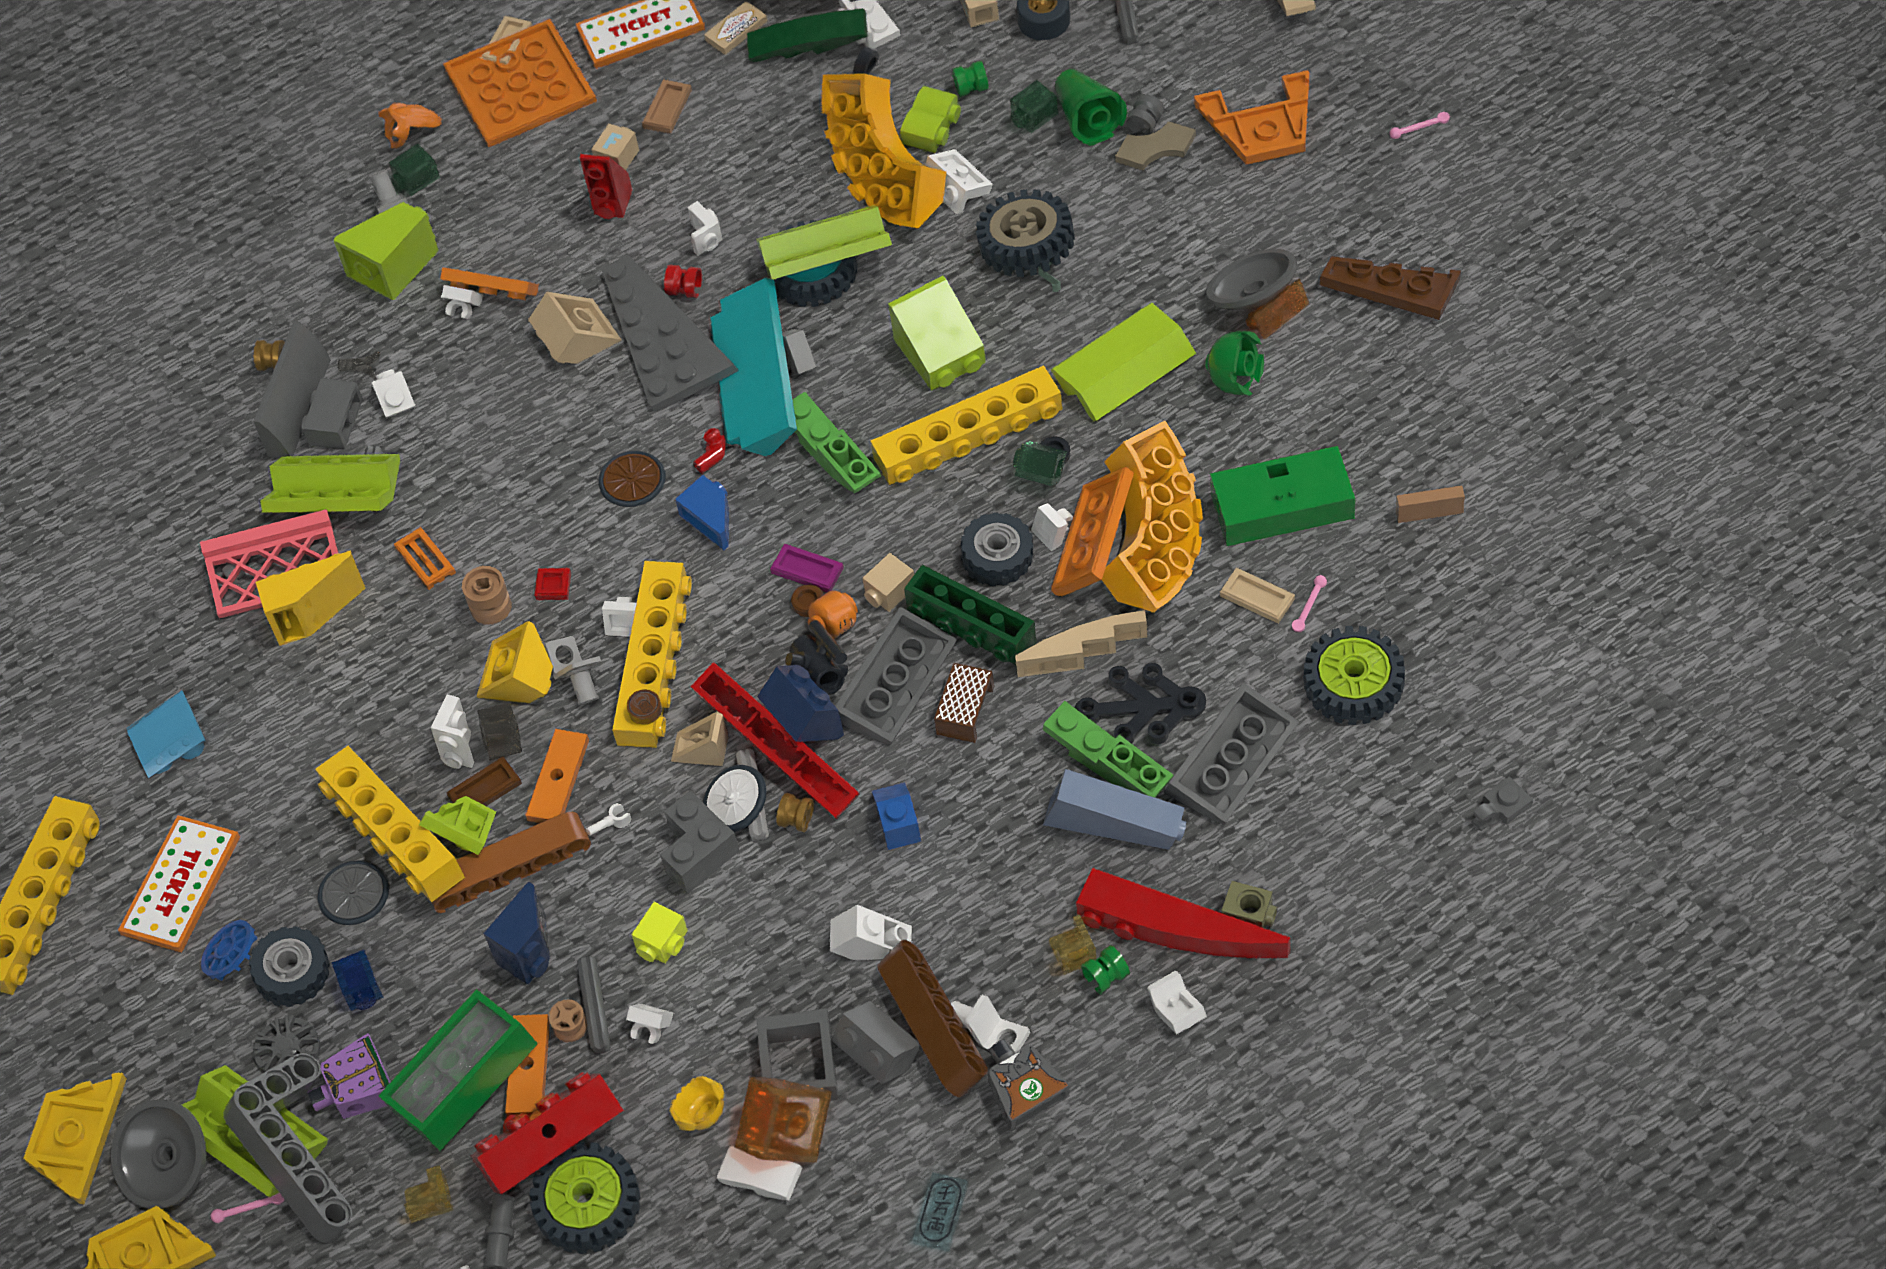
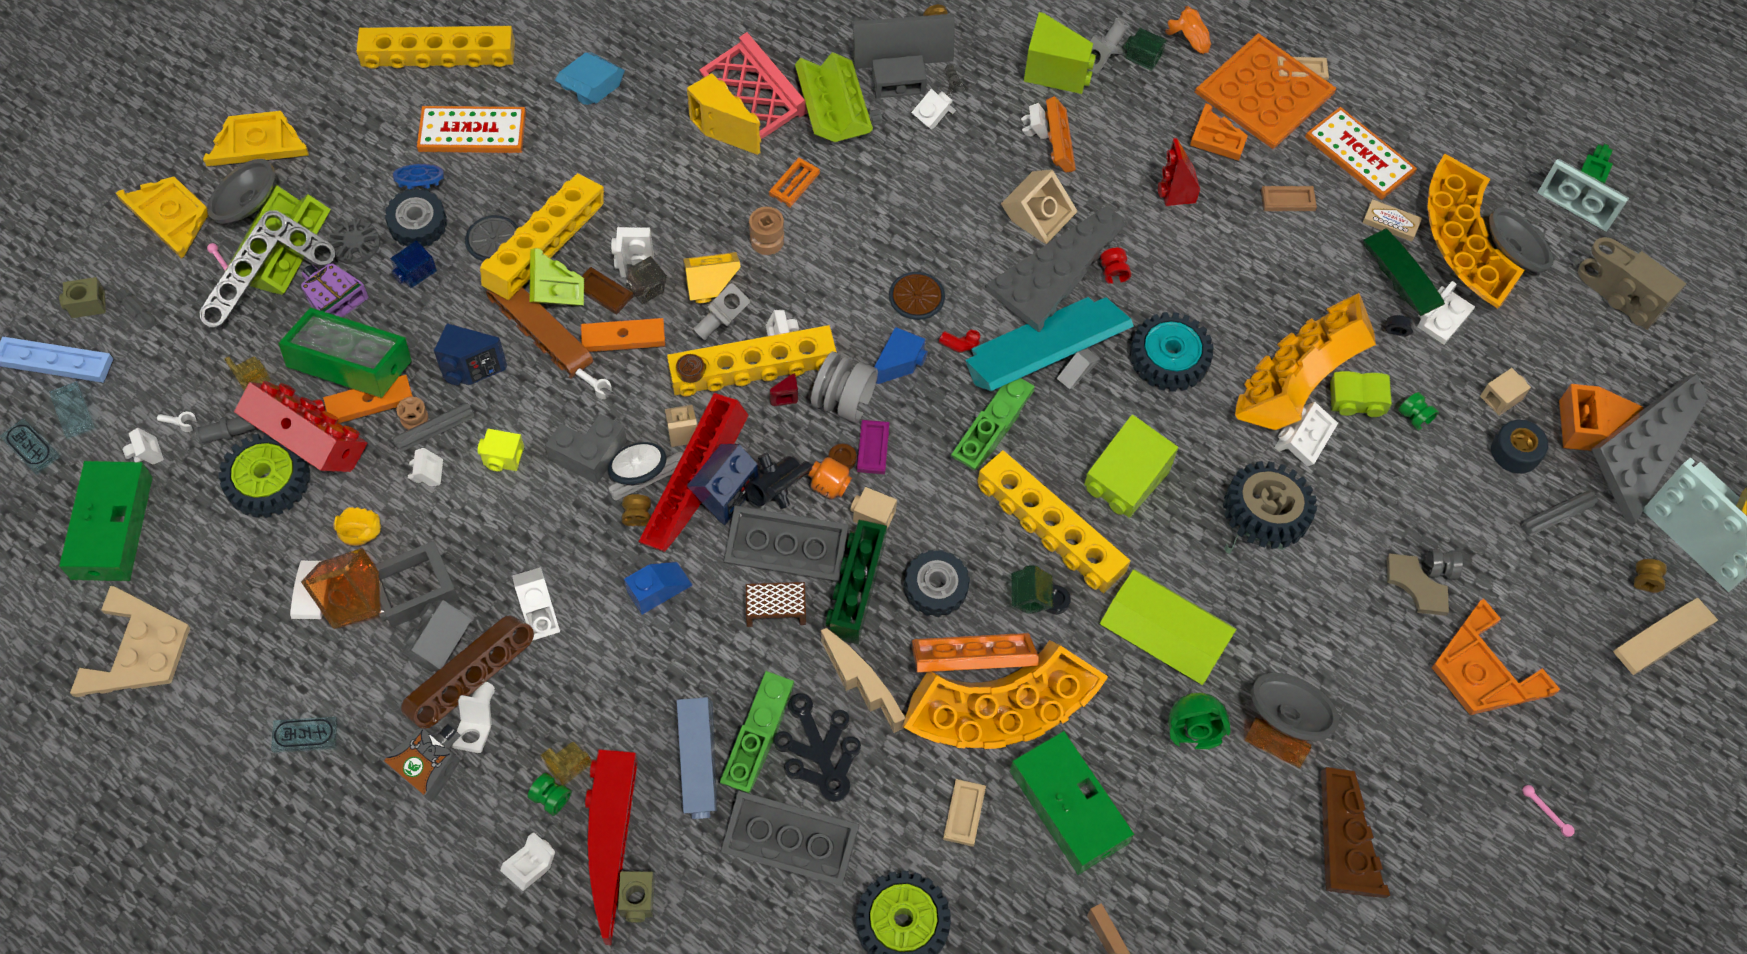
camera: 60 degrees right, 5 degrees up
(553, 584) = (799, 274): red tile -> none
(558, 141) = (1218, 135): none -> orange wing
(618, 144) = (1226, 175): tan brick -> none
(707, 226) = (1170, 269): white bracket -> none
(707, 628) = (785, 392): none -> dark red slope
(731, 565) = (839, 385): none -> light grey wheel
(823, 242) = (1186, 350): lime slope -> none
(1033, 107) = (1410, 470): clear green brick -> none
(1051, 525) = (975, 621): white tile -> none
(1089, 107) = (1428, 513): green cone -> none
(1299, 625) = (946, 857): bright pink hinge -> none

